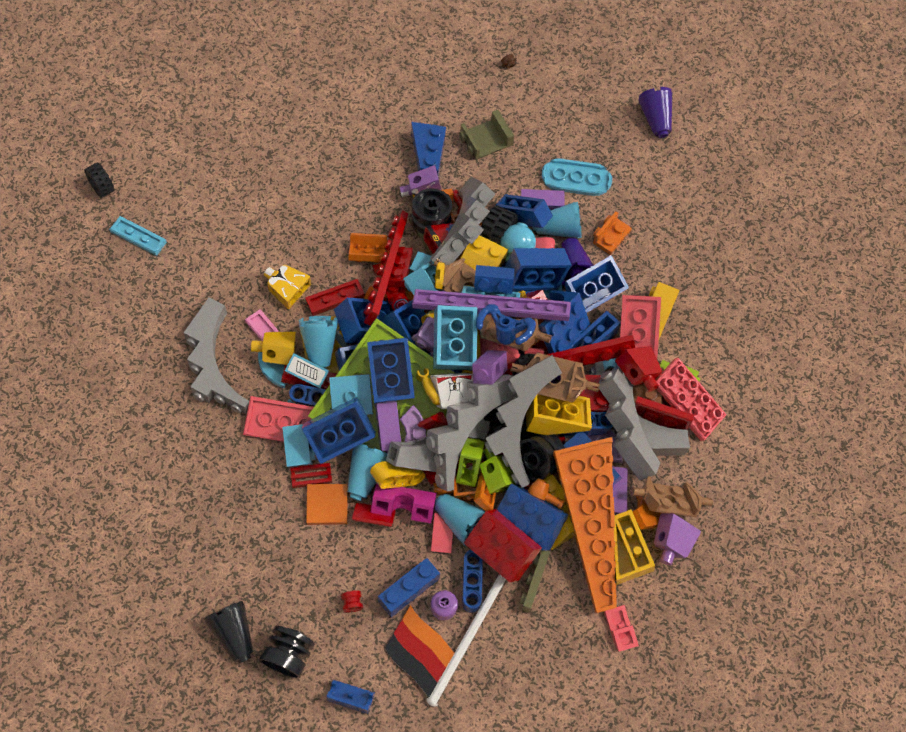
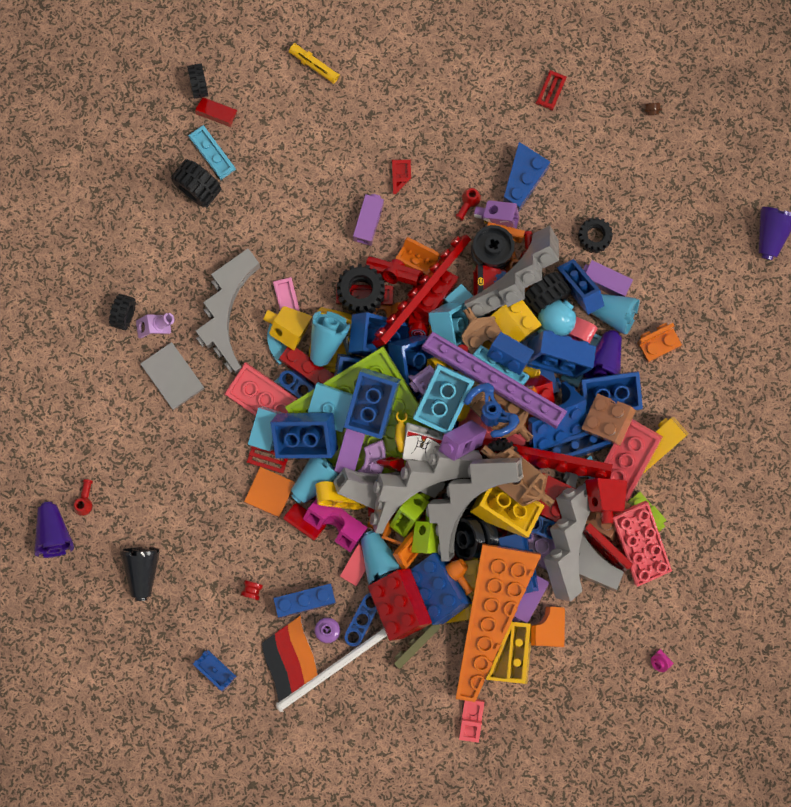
camera: 30 degrees right, 15 degrees up
(111, 399) = (122, 311): none -> black tyre
(125, 635) = (51, 532): none -> dark purple cone
(127, 202) = (216, 112): none -> red slope
(135, 260) = (196, 183): none -> black tyre
(148, 399) = (155, 324): none -> lavender bracket
(150, 600) = (84, 498): none -> red bar
(185, 439) = (172, 376): none -> light grey tile
(216, 134) = (313, 63): none -> yellow pin
(287, 284) = (325, 263): yellow torso -> none
(288, 648) = (177, 610): black wheel -> none
(306, 370) = (303, 362): tile -> none
(308, 234) = (368, 219): none -> medium lavender brick
(319, 188) = (401, 174): none -> red slope
(326, 277) = (355, 275): none -> black tyre
(343, 266) = (395, 271): none -> red piece
(390, 187) = (468, 202): none -> red bar
(417, 90) = (545, 104): none -> red tile
(439, 275) = (462, 326): yellow tile -> none
(487, 137) = (588, 185): olive panel -> none
(515, 163) = (603, 227): none -> black tyre
(576, 177) = (656, 266): medium azure tile -> none
(607, 302) = (608, 419): none -> nougat piece
(671, 499) = (587, 634): medium nougat plate -> none
(674, 537) = (558, 665): medium lavender torso -> none
(760, 496) = (660, 661): none -> dark pink plate

